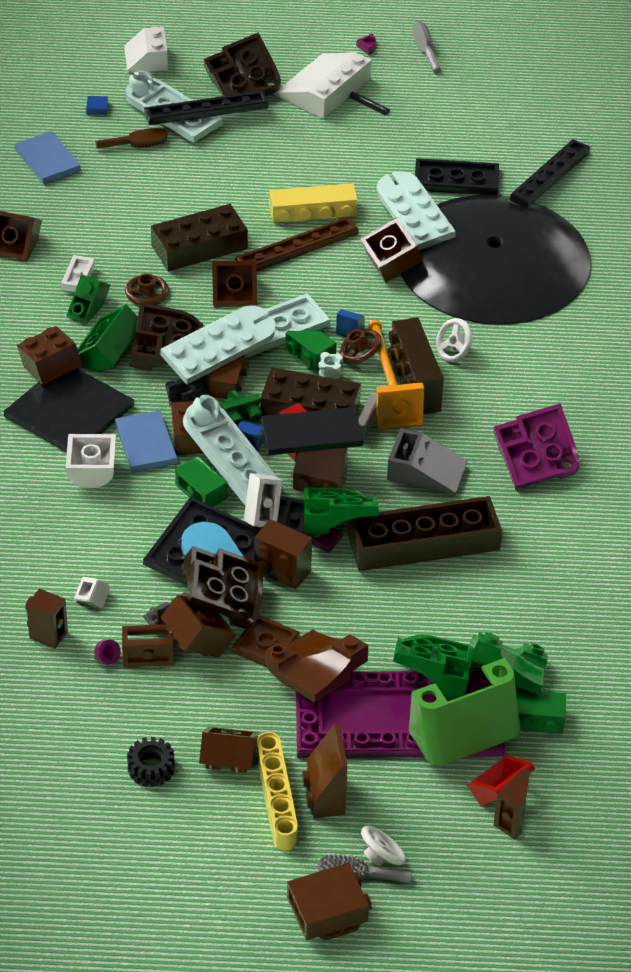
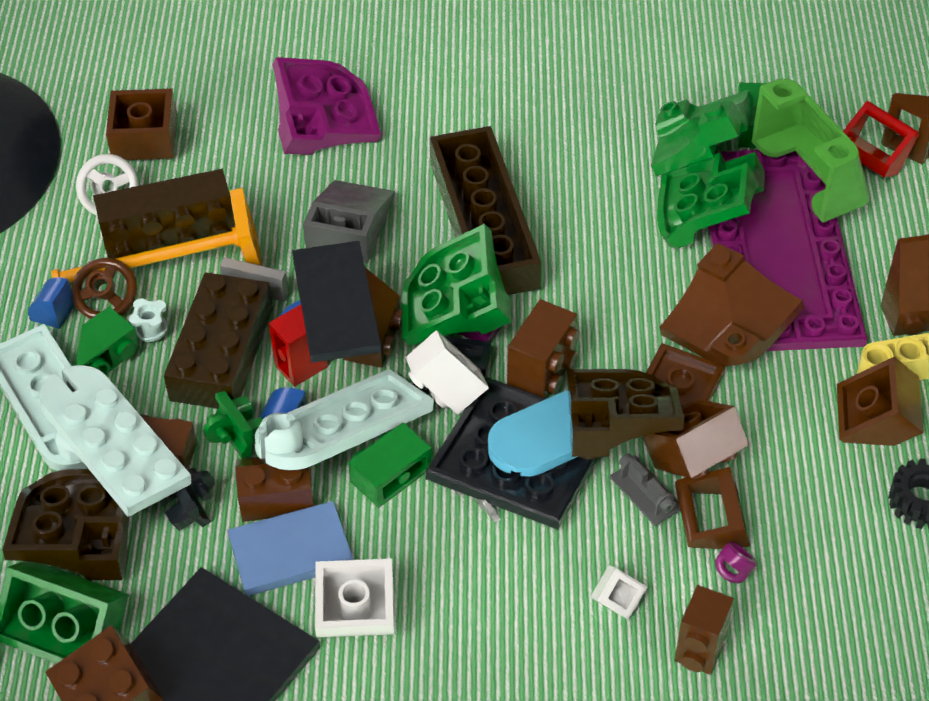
camera: 90 degrees left, 5 degrees up
(514, 353) = (142, 124): none -> reddish brown brick

